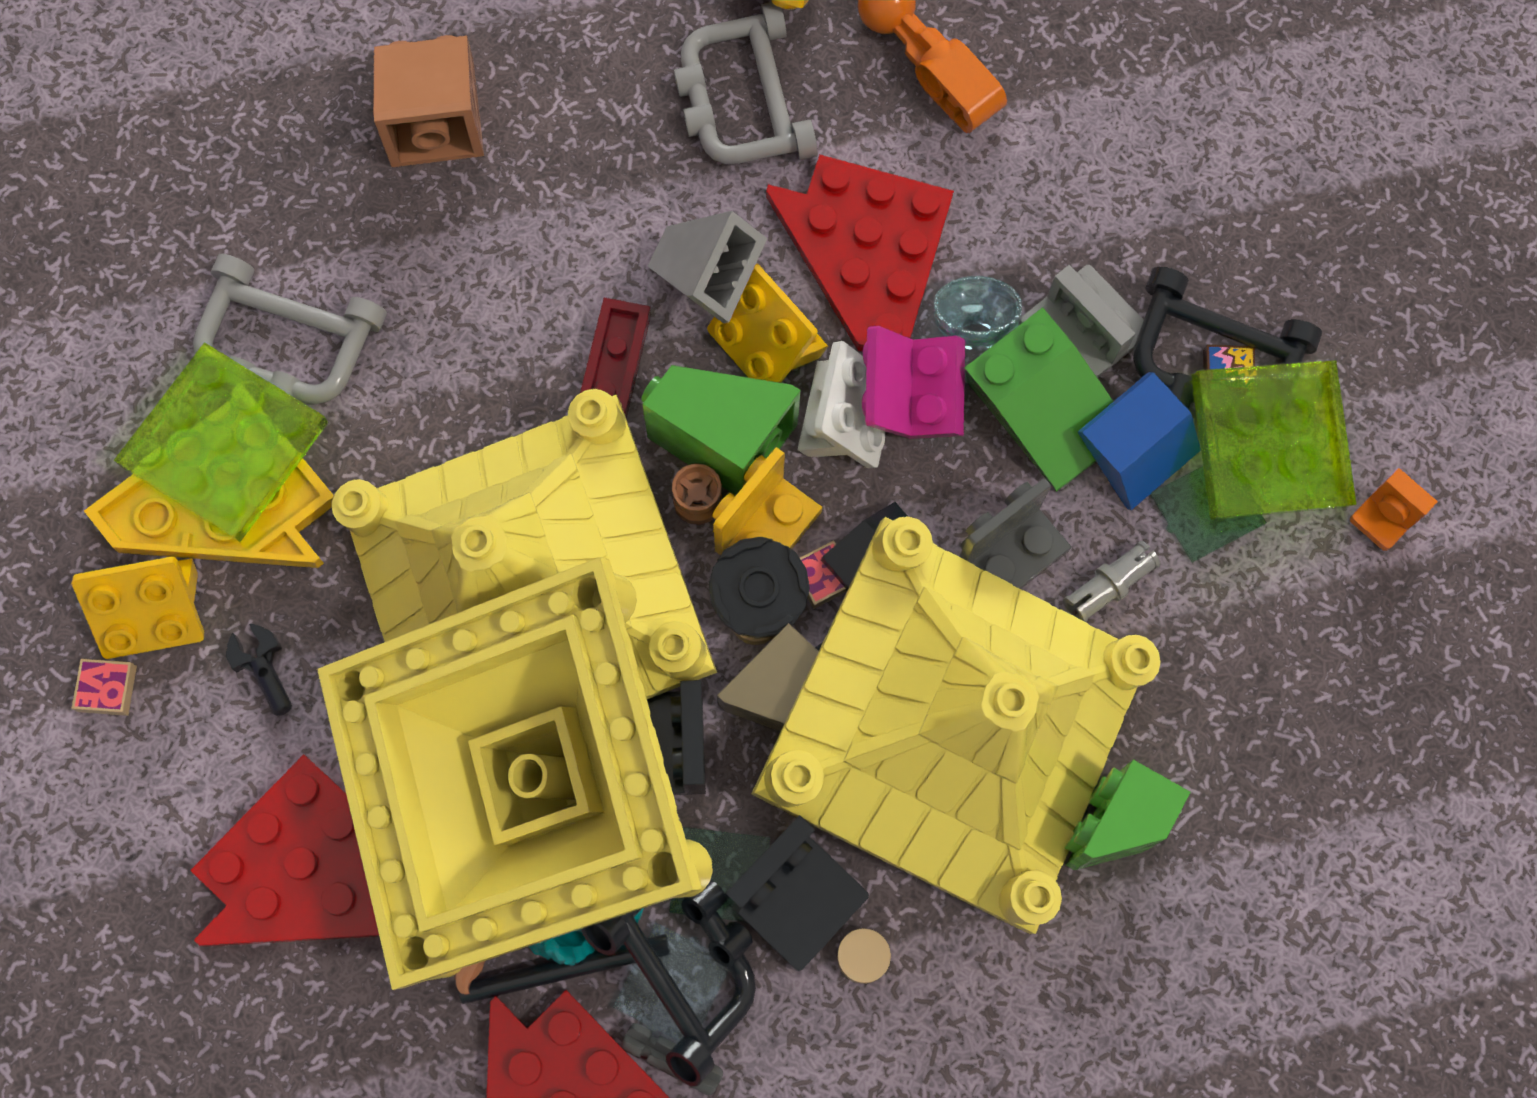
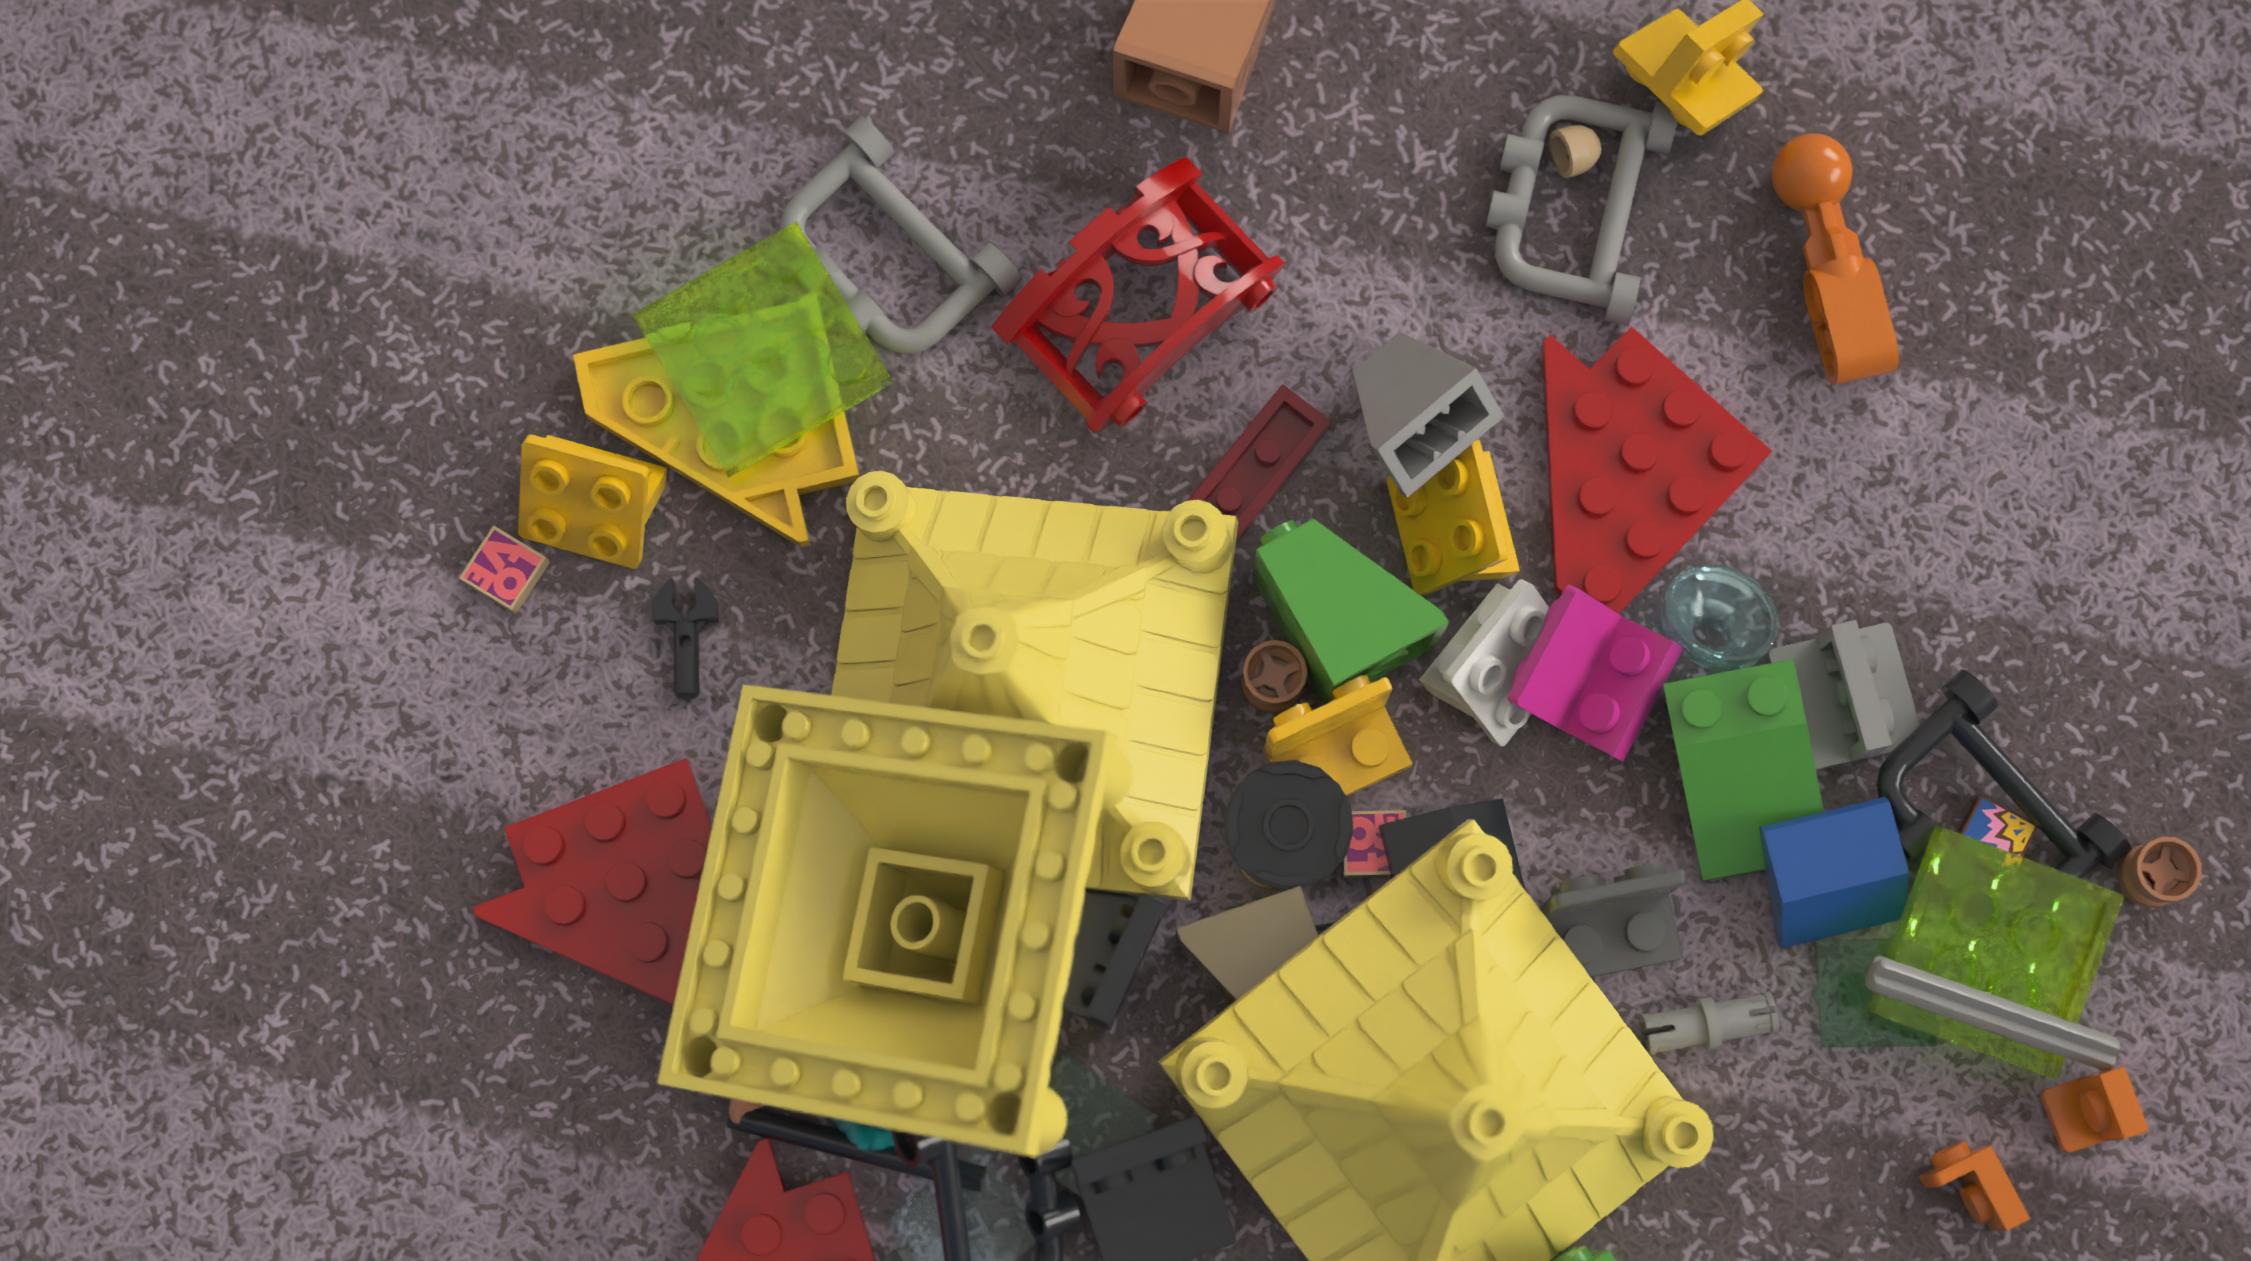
camera: 30 degrees right, 5 degrees up
(472, 215) = (1160, 205): none -> red fence
(724, 55) = (1580, 144): none -> tan hinge
(1293, 478) = (1992, 1013): none -> light grey axle
(1348, 328) = (2174, 871): none -> nougat wheel
(1352, 597) = (1987, 1191): none -> orange bracket

